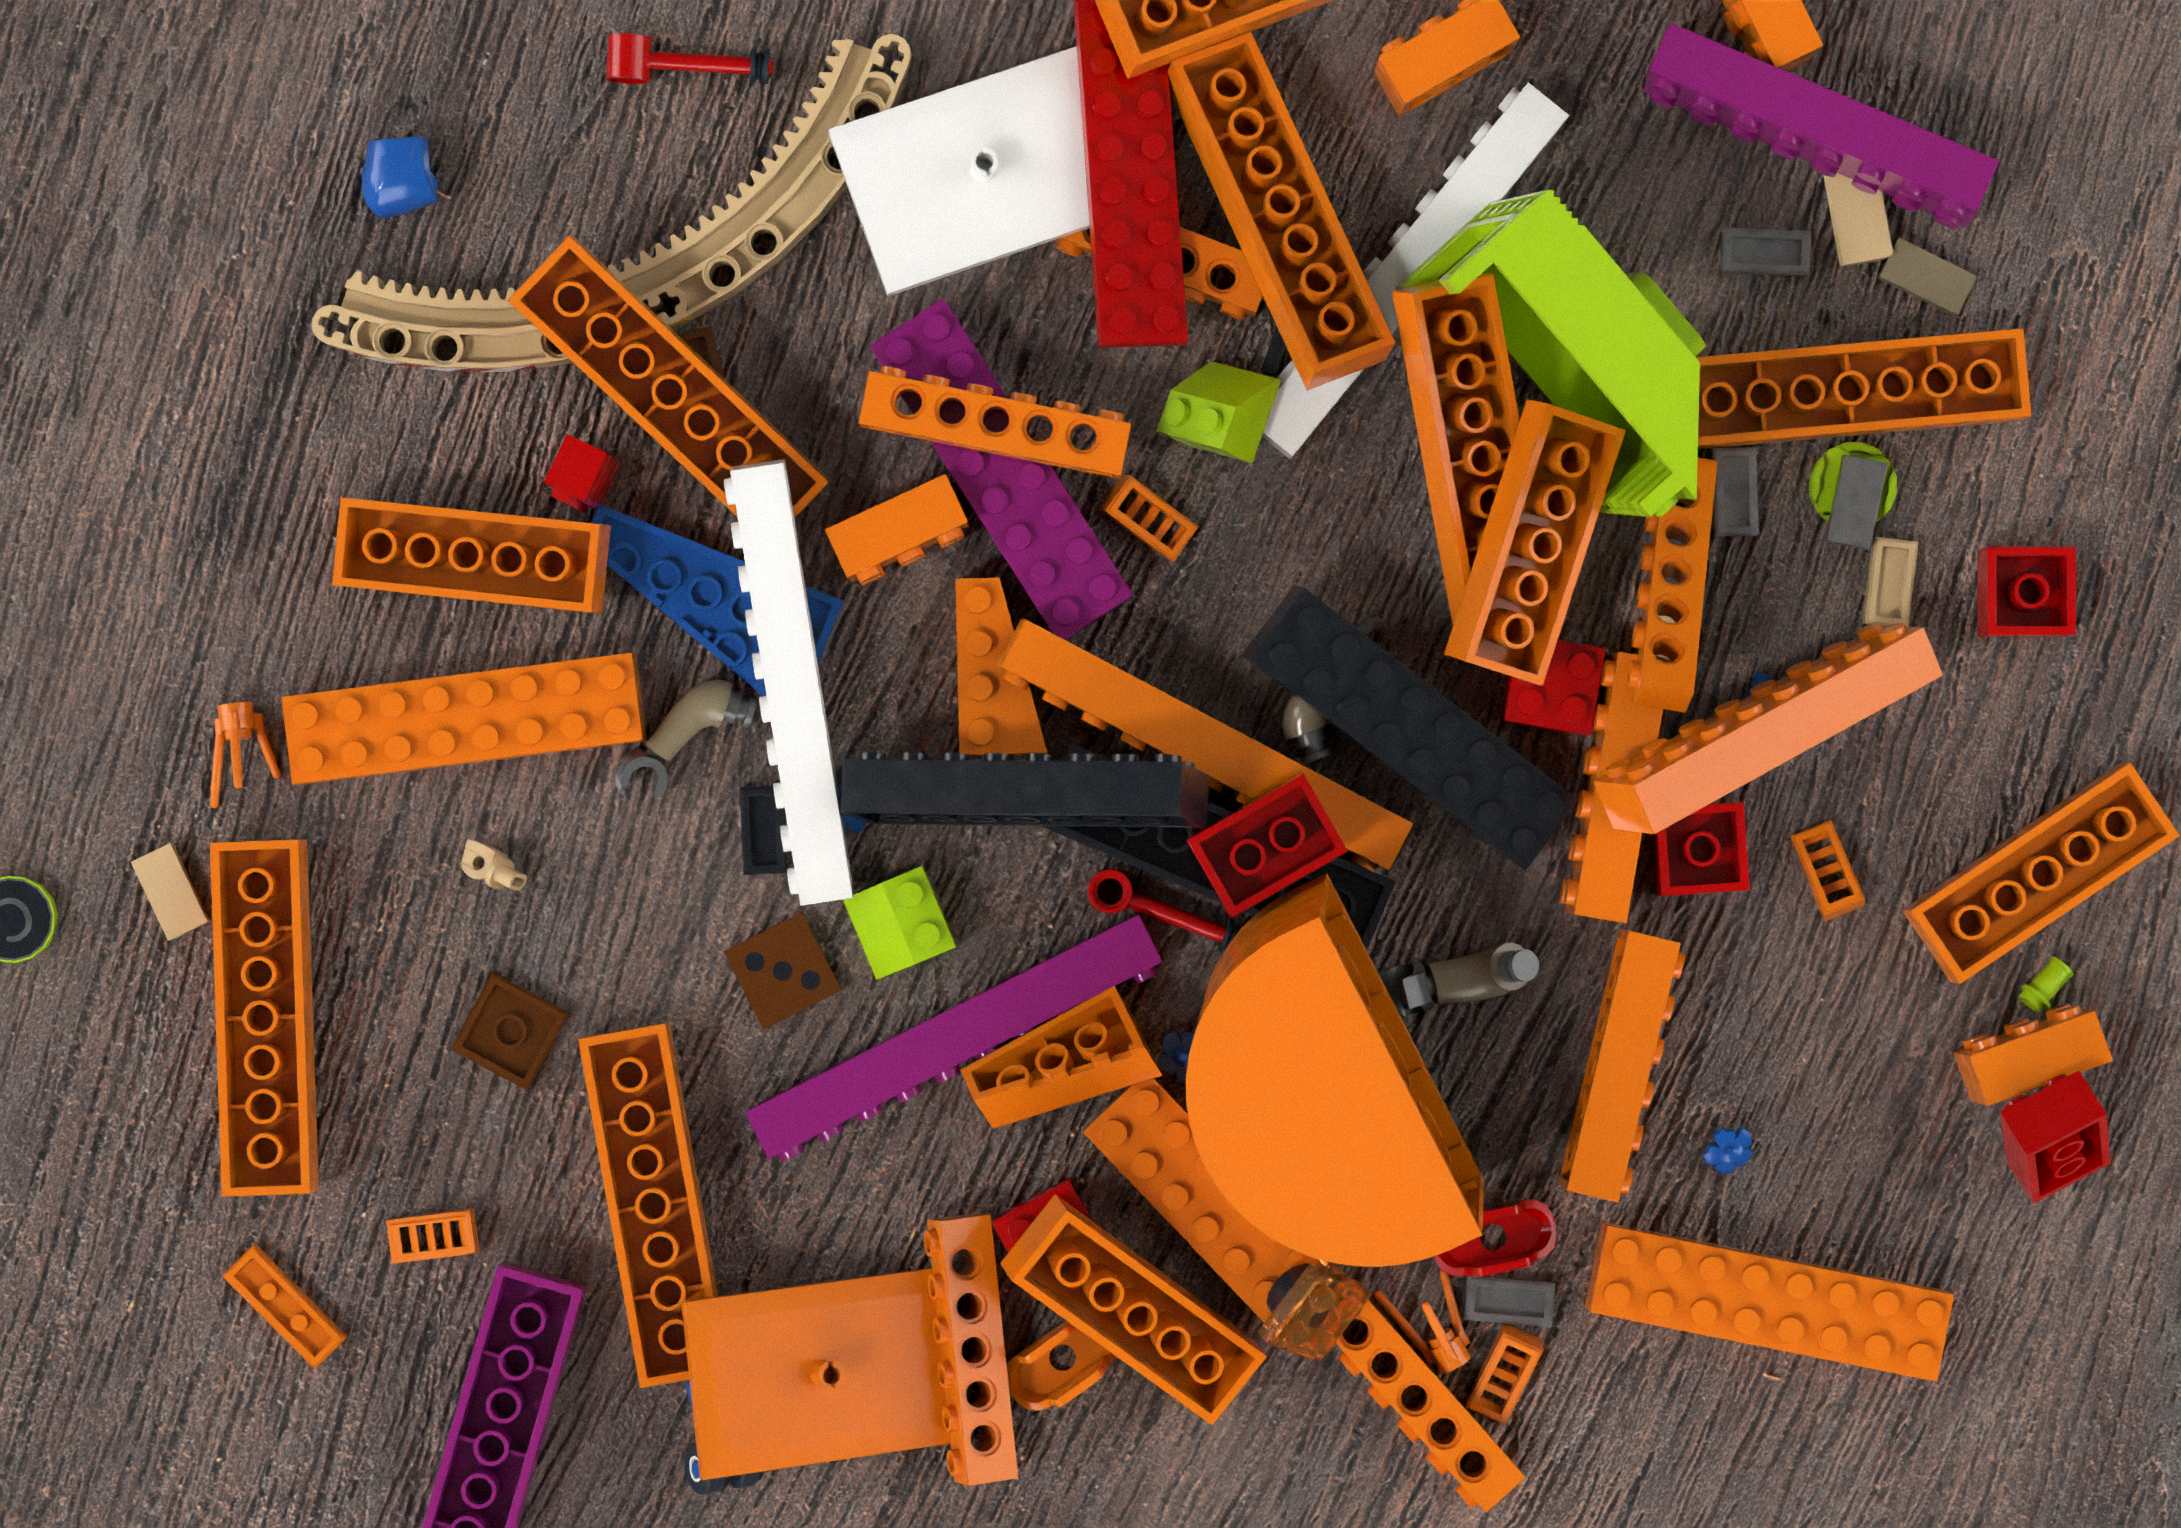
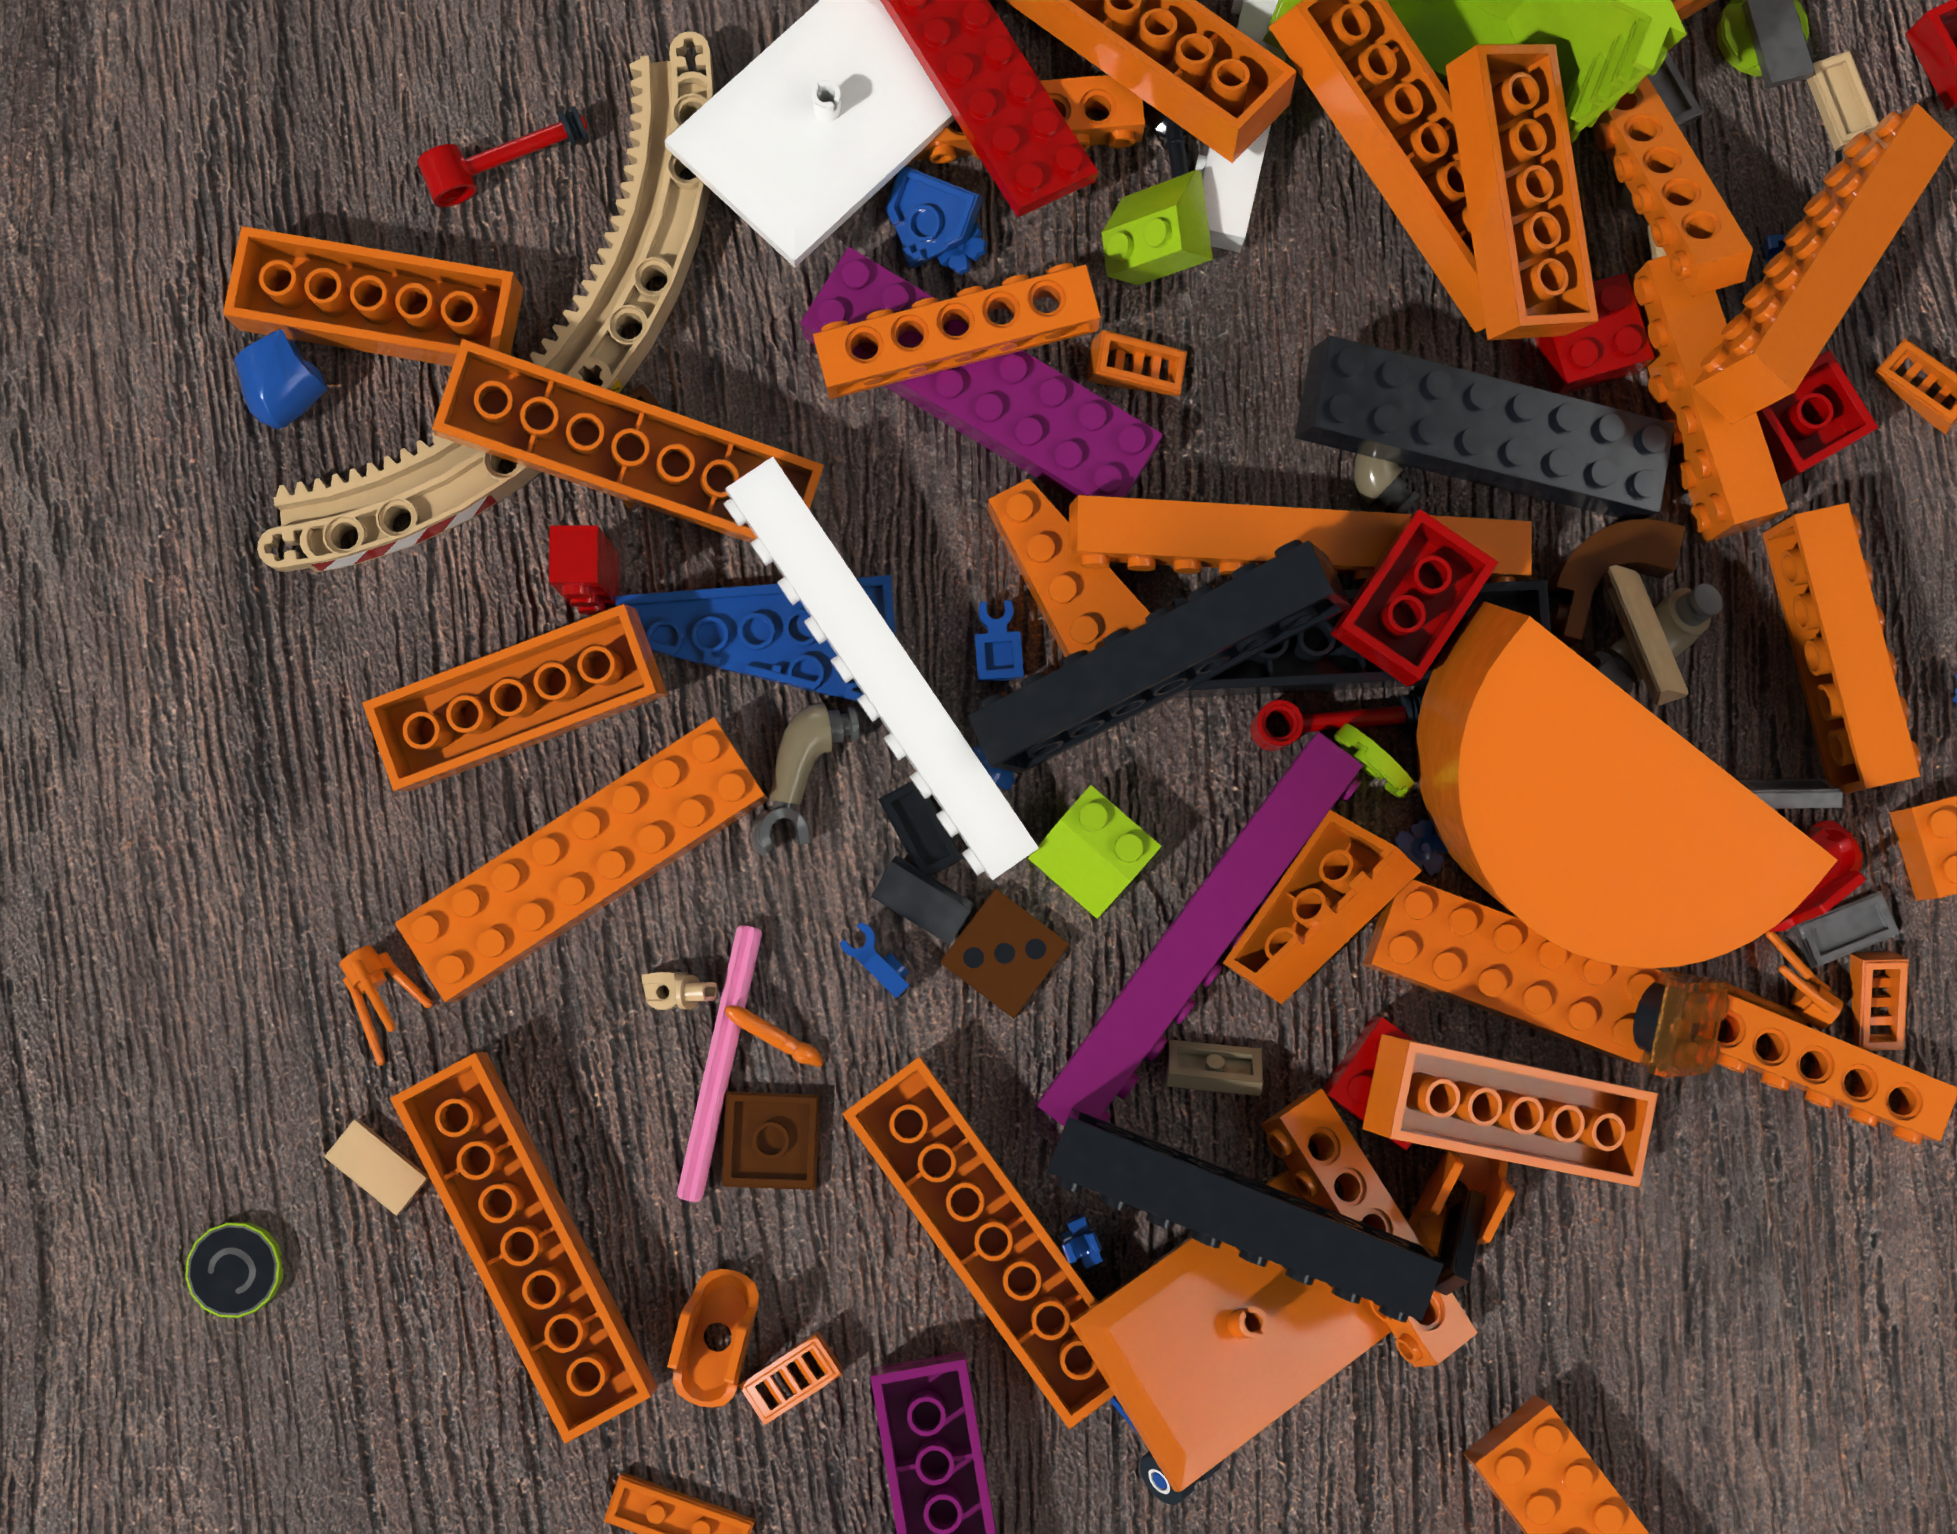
camera: 30 degrees left, 5 degrees down
(360, 1195) = (699, 1372): none -> orange piece
(498, 945) = (718, 1066): none -> bright pink axle
(512, 144) = (368, 298): none -> orange brick
(570, 968) = (776, 1037): none -> orange piece
(675, 937) = (886, 971): none -> blue plate
(726, 1242) = (1081, 1242): none -> blue plate
(735, 892) = (922, 900): none -> black tile
(864, 1282) = (1245, 1214): none -> black brick
(898, 530) = (912, 480): orange brick -> none
(904, 710) = (998, 651): none -> blue plate
(911, 1153) = (1214, 1067): none -> dark tan plate
(1034, 297) = (930, 215): none -> blue plate
(1038, 1396) = (1459, 1241): none -> black tile
(1047, 339) = (959, 257): none -> blue plant
(1173, 963) = (1375, 760): none -> lime tile
(1460, 969) = (1645, 635): none -> tan slope
(1485, 881) = (1636, 544): none -> reddish brown arch
(1516, 1162) = (1796, 793): none -> flat silver tile

